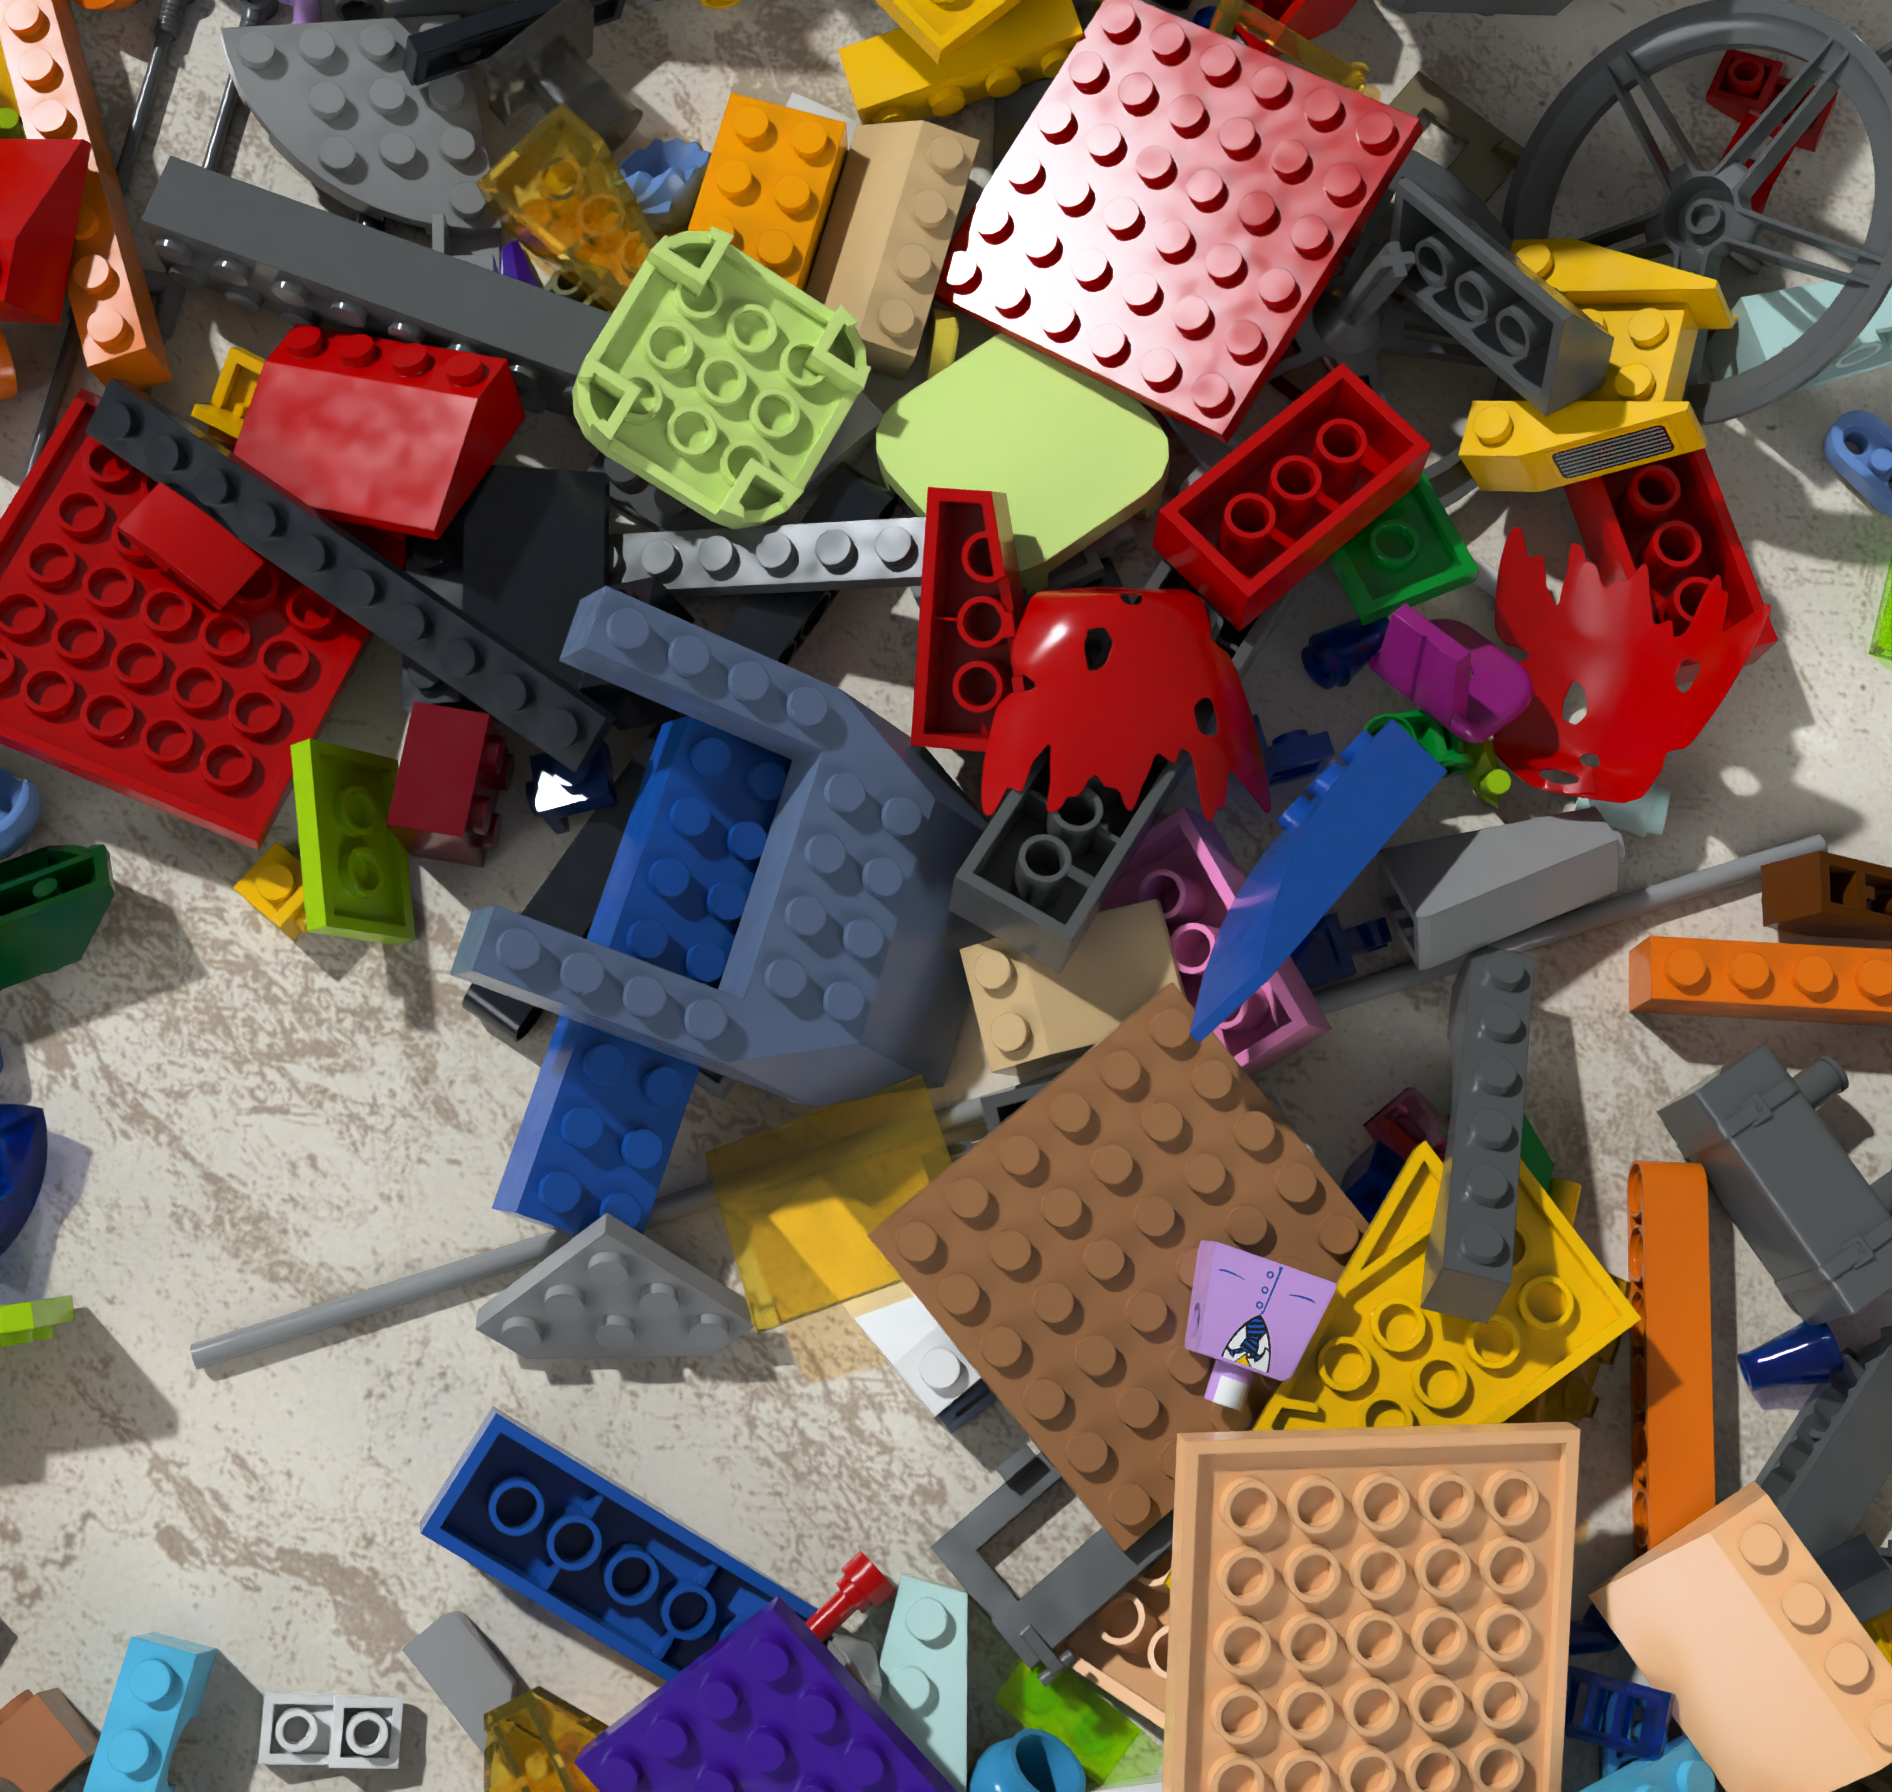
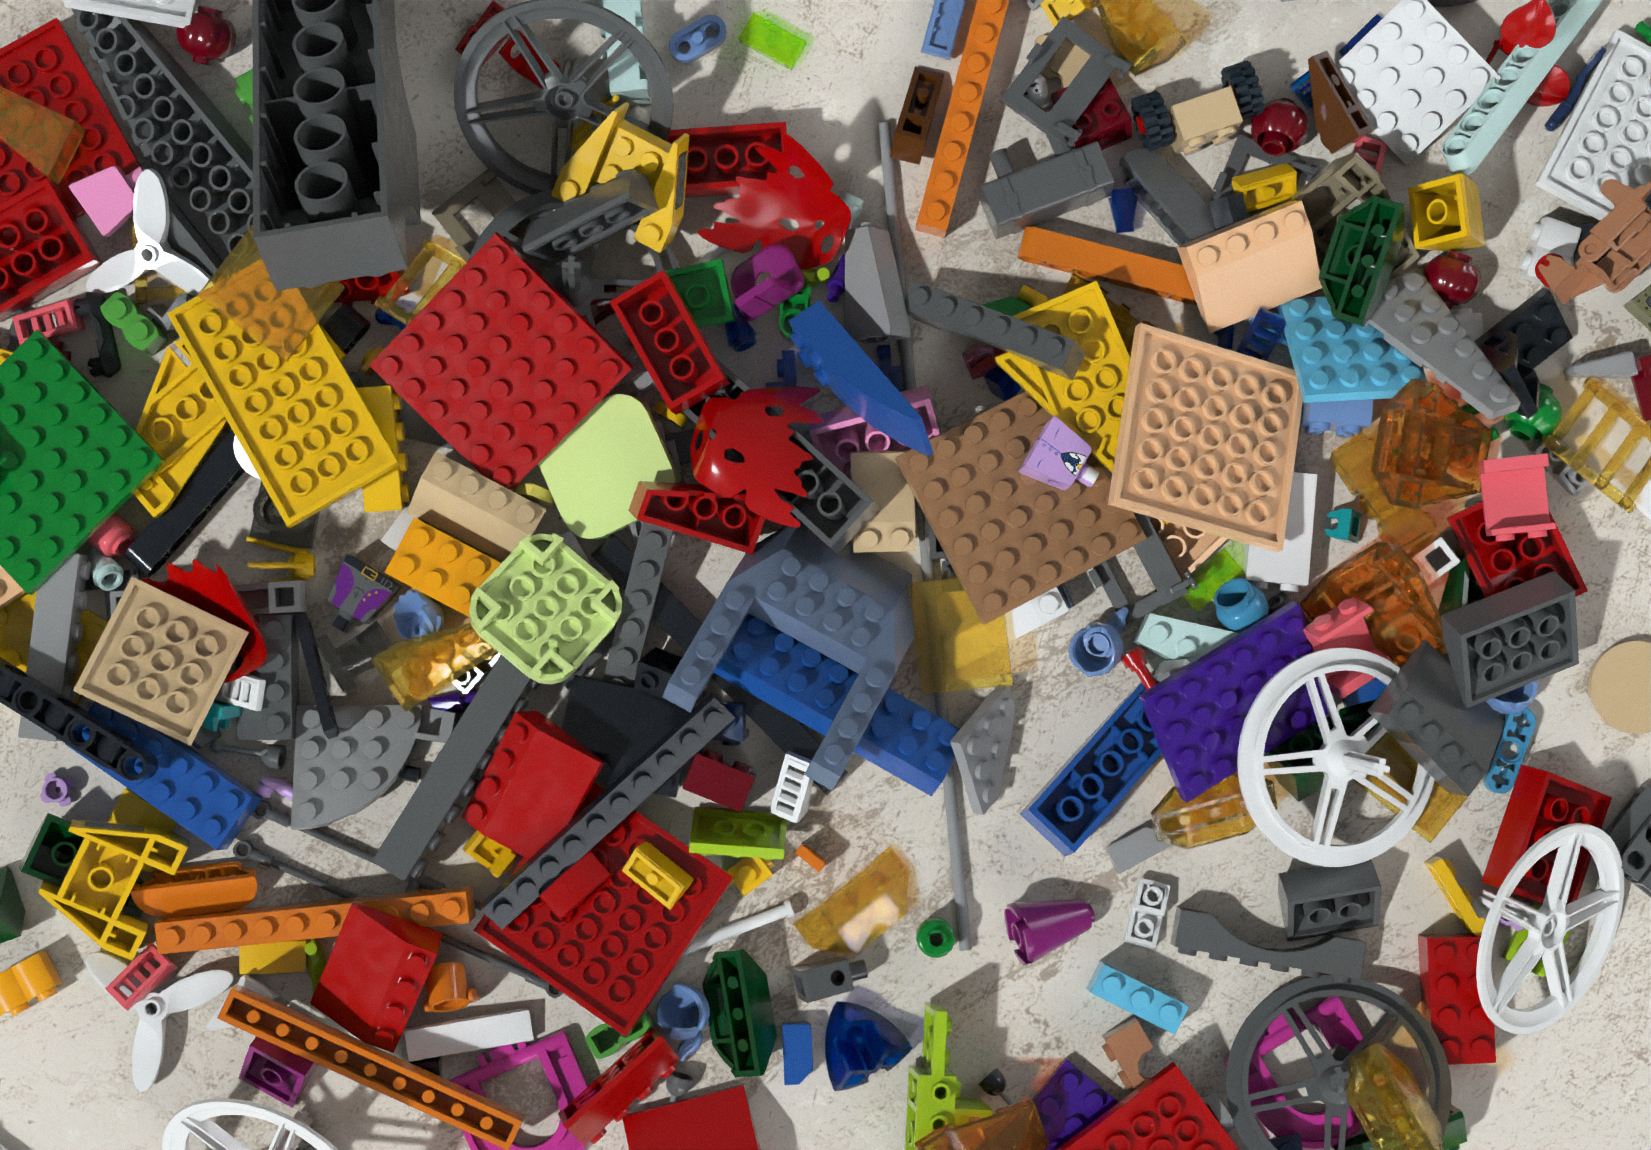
camera: 75 degrees left, 10 degrees up
(68, 1060) = (814, 979): none -> dark grey torso
(182, 1286) = (939, 948): none -> green piece
(219, 975) = (741, 927): none -> white bar
(239, 697) = (657, 874): none -> yellow slope
(249, 1121) = (859, 907): none -> clear yellow wedge
(265, 1515) = (1045, 925): none -> magenta cone
(332, 999) = (810, 857): none -> orange tile
(435, 927) = (784, 803): none -> white slope
(686, 76) = (360, 593): none -> torso
(876, 1499) = (1099, 645): none -> medium blue hair
(1146, 561) = (679, 420): none -> yellow tile
(1480, 815) = (836, 283): none -> dark purple bar

